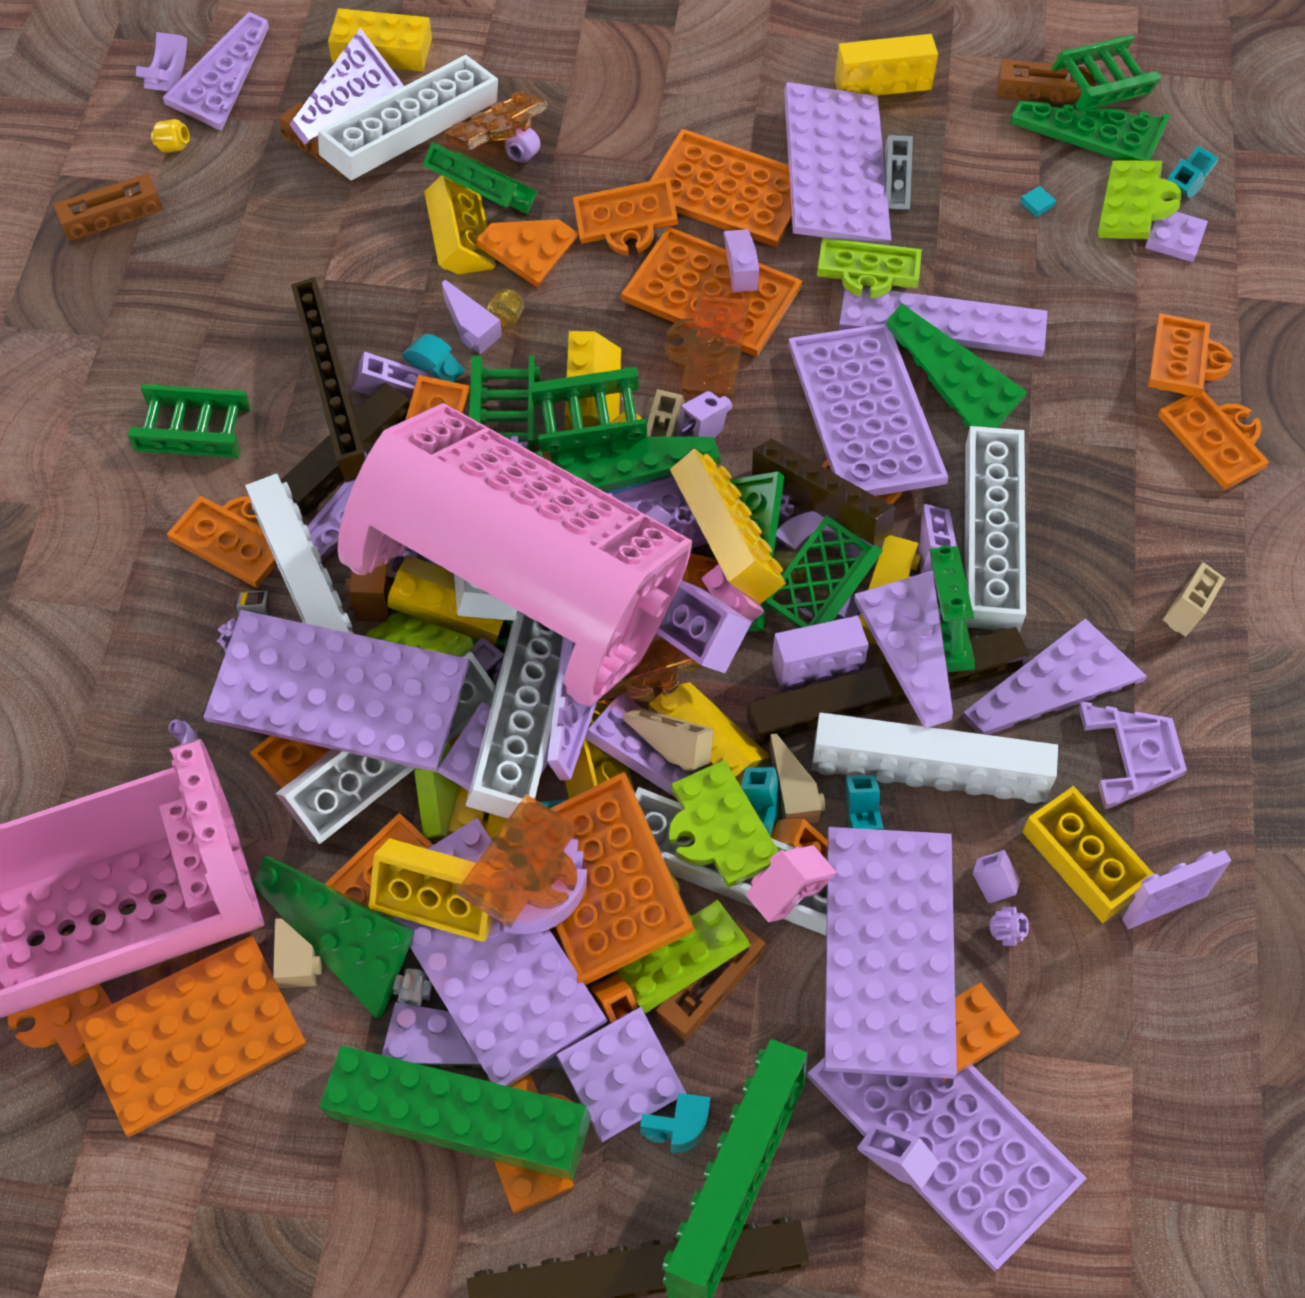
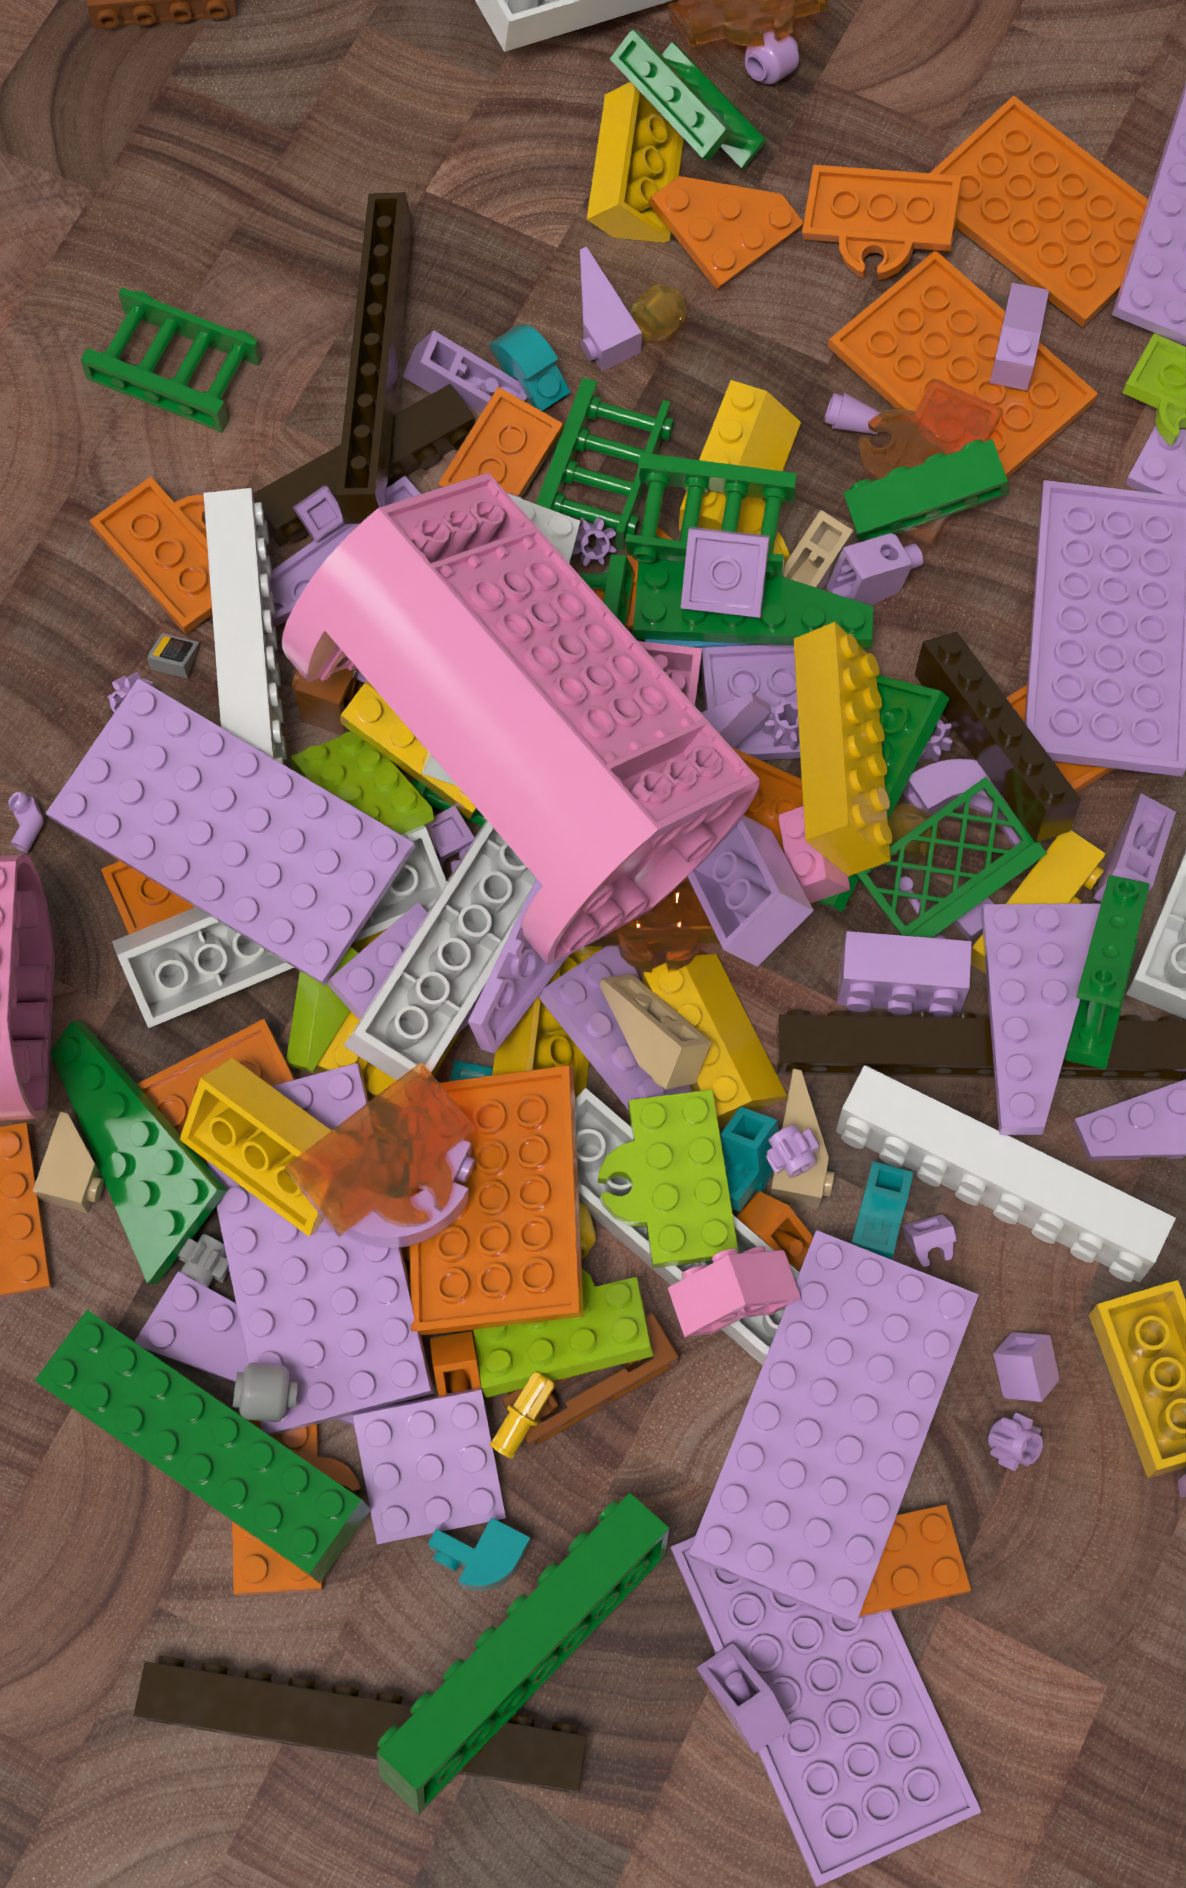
camera: 20 degrees right, 10 degrees up
(325, 484) = (319, 513): none -> lavender tile
(490, 1056) = (264, 1392): none -> light grey head
(612, 438) = (725, 572): none -> lavender plate
(650, 334) = (849, 414): none -> lavender cone
(675, 1014) = (522, 1414): none -> yellow axle
(720, 360) = (927, 491): none -> green brick
(792, 783) = (792, 1151): none -> lavender gear
(900, 811) = (928, 1234): none -> lavender tile

